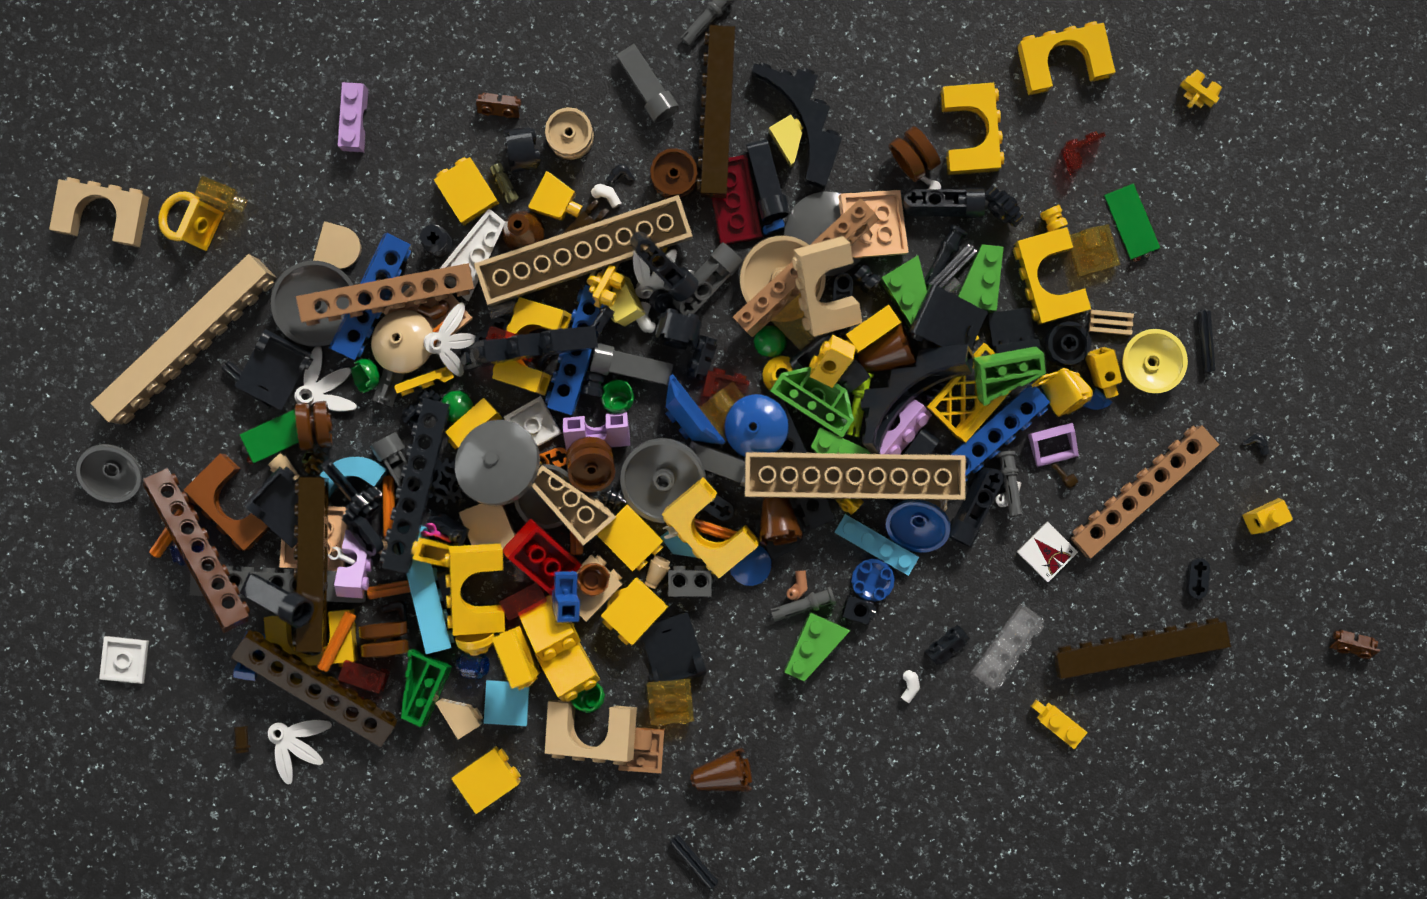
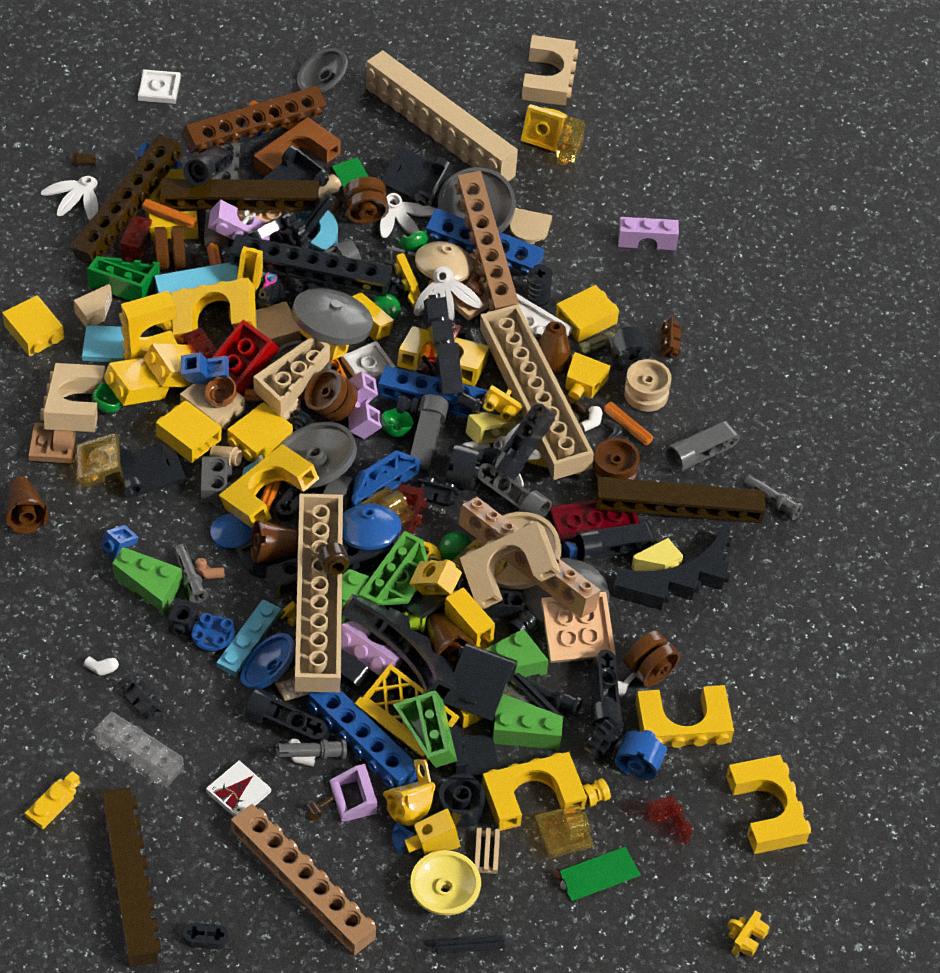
camera: 80 degrees right, 35 degrees down
(612, 157) = (628, 423): none -> orange axle
(764, 676) = (116, 539): none -> blue bracket
(834, 461) = (333, 558): none -> dark brown head
(1020, 172) = (640, 754): none -> blue brick

